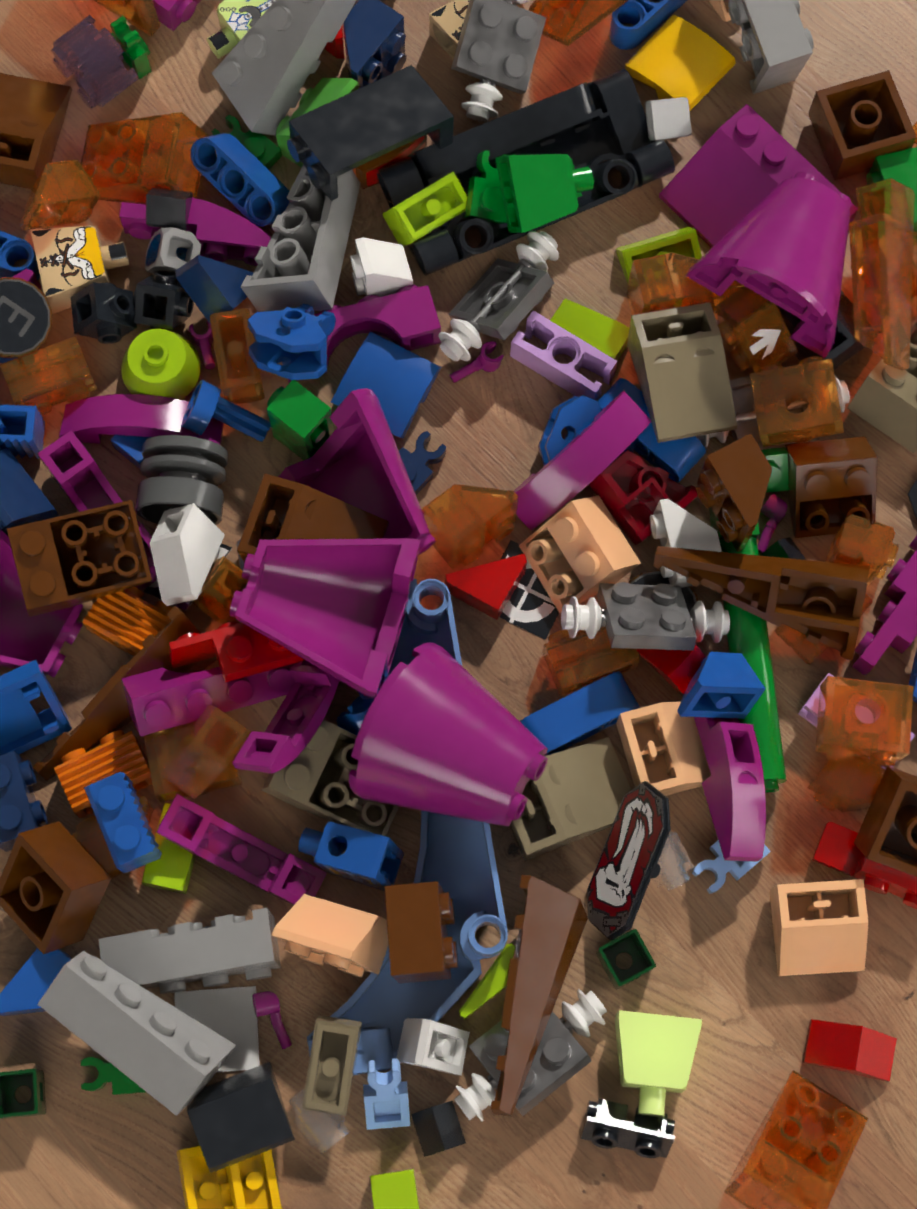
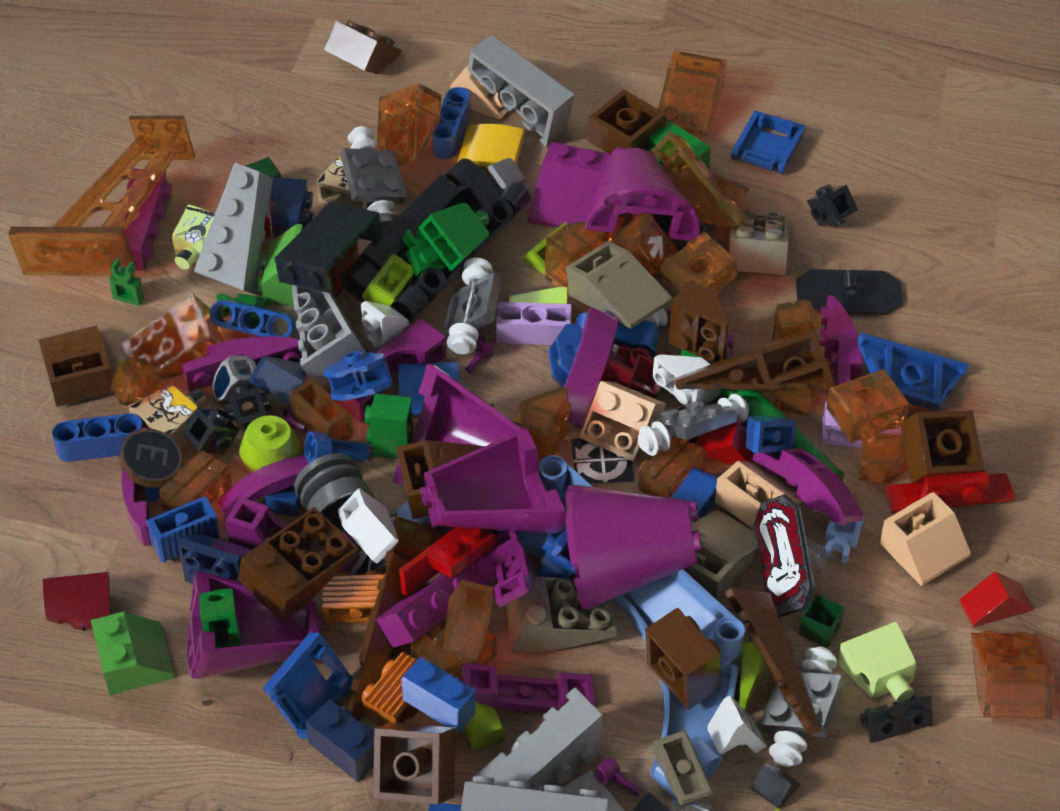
camera: 30 degrees left, 25 degrees down
(93, 62) = (108, 299): brick -> none
(168, 208) = (218, 350): black slope -> none
(334, 935) = (629, 698): light nougat slope -> none
(367, 859) = (604, 648): blue torso -> none
(386, 1098) = (732, 778): light blue plate -> none
(488, 585) = (582, 456): red slope -> none
(830, 484) = (751, 311): reddish brown slope -> none

